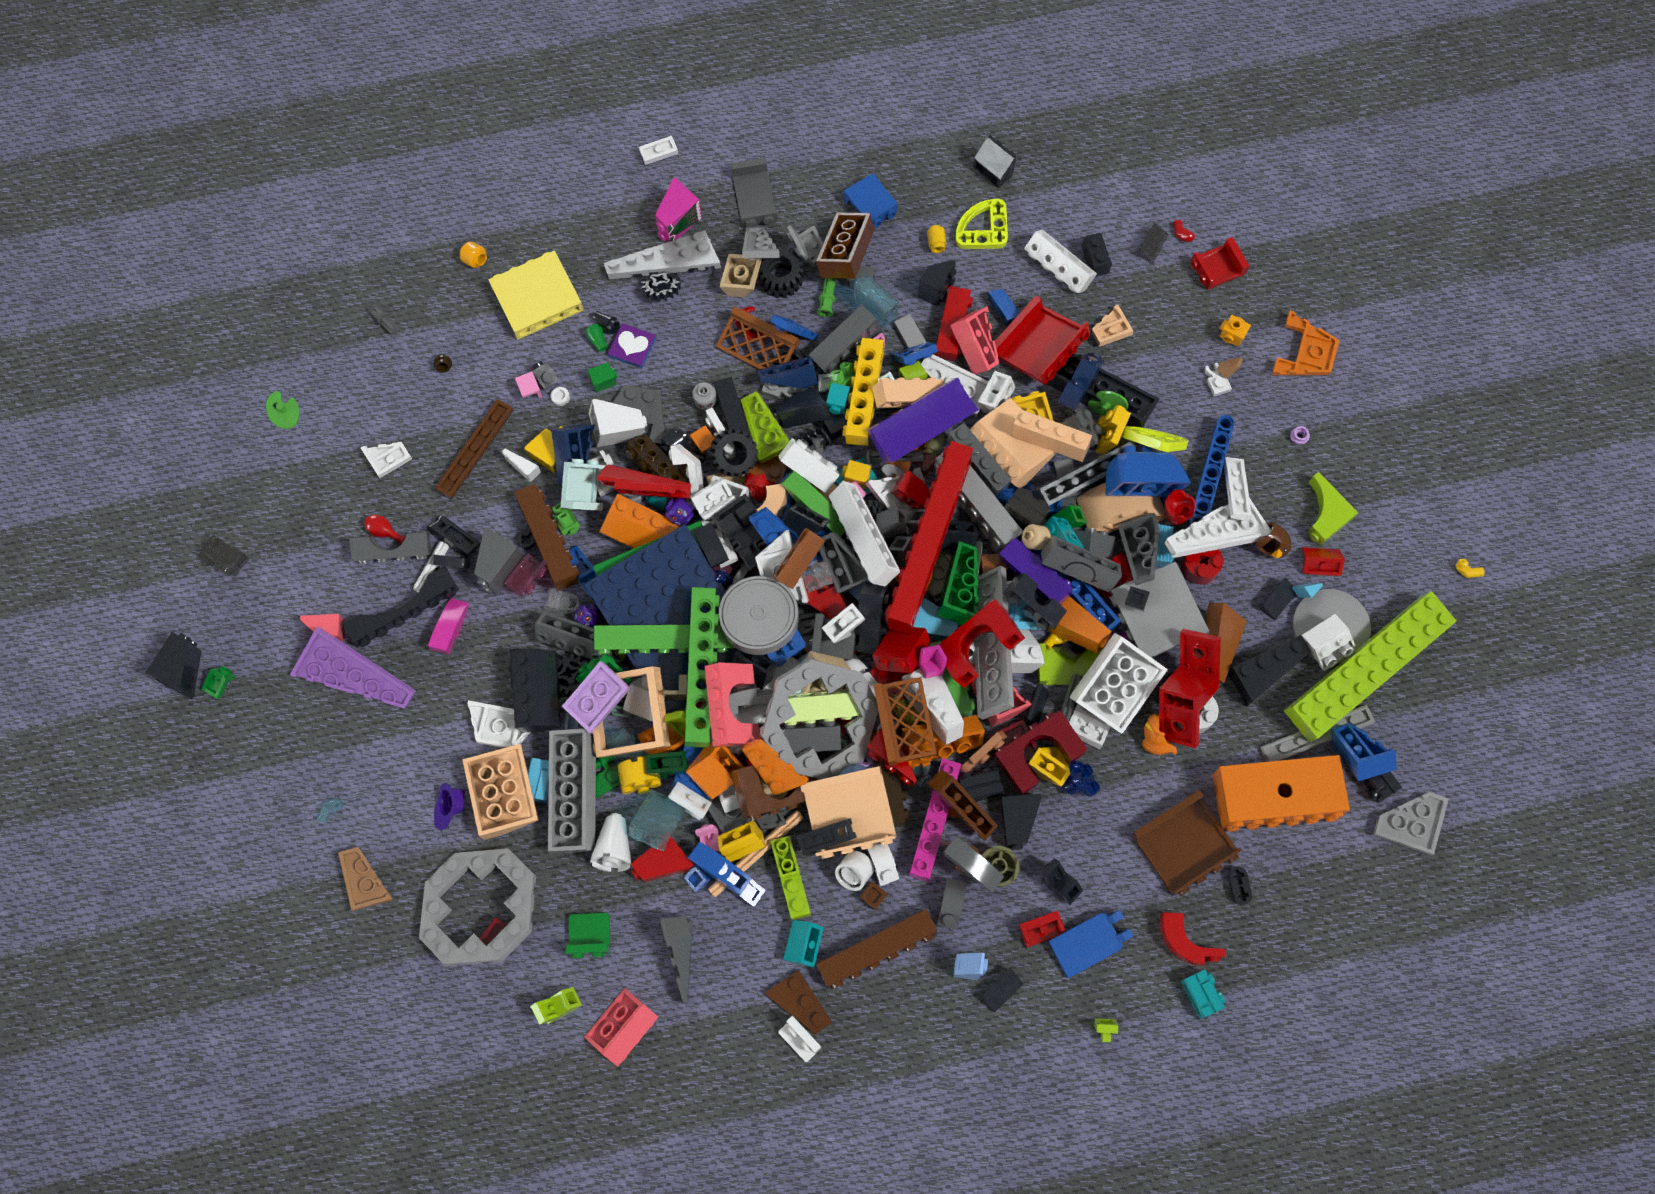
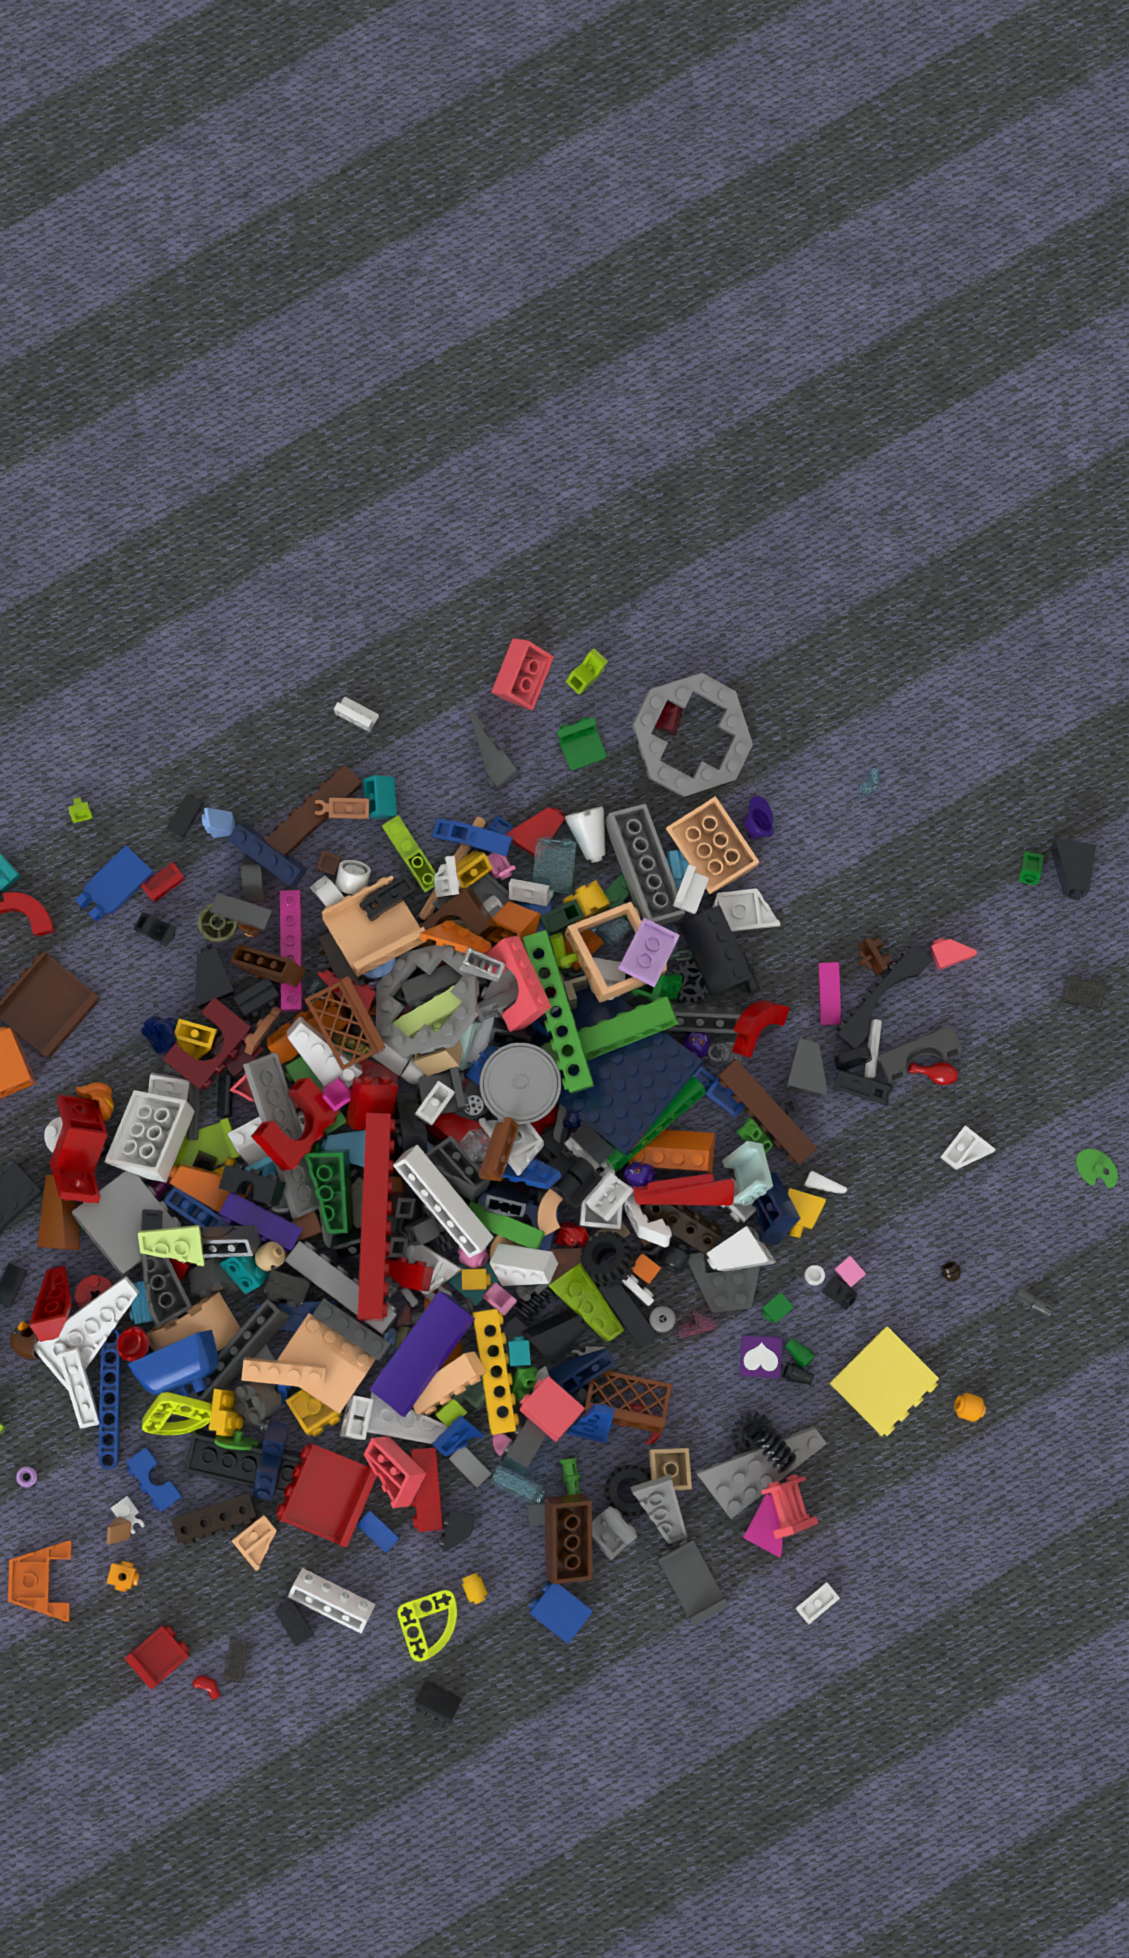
camera: 160 degrees right, 10 degrees up
(345, 669) = (906, 916): medium lavender wing -> none
(361, 881) = (812, 727): medium nougat wing -> none
(397, 646) = (872, 957): none -> reddish brown hips
(474, 449) = (879, 1187): reddish brown plate -> none
(515, 620) = (753, 1021): none -> red arch
(525, 575) = (770, 1066): clear pink bracket -> none
(536, 749) = (691, 890): none -> white panel
(647, 260) = (776, 1448): none -> black piece
(651, 210) = (789, 1507): none -> coral fence
(673, 381) = (702, 1325): none -> clear pink slope
(678, 741) = (558, 945): none -> lime slope
(764, 833) = (446, 879): none -> white wing
(774, 729) = (479, 971): none -> light grey slope
(799, 1001) = (366, 747): reddish brown wing -> none
(805, 623) = (474, 1106): none -> white tile
(825, 345) = (551, 1408): none -> coral brick
(839, 453) = (499, 1298): none -> bright pink panel
(841, 939) = (345, 808): none -> nougat plate
(944, 935) = (257, 848): none -> dark blue arch
(1073, 515) = (246, 1302): green brick -> none
(1118, 568) = (175, 1243): none -> yellowish green wing
(1143, 354) = (213, 1518): none -> dark brown brick
(1184, 384) = (141, 1467): none -> blue arch
(1245, 560) = (51, 1305): none -> red wedge

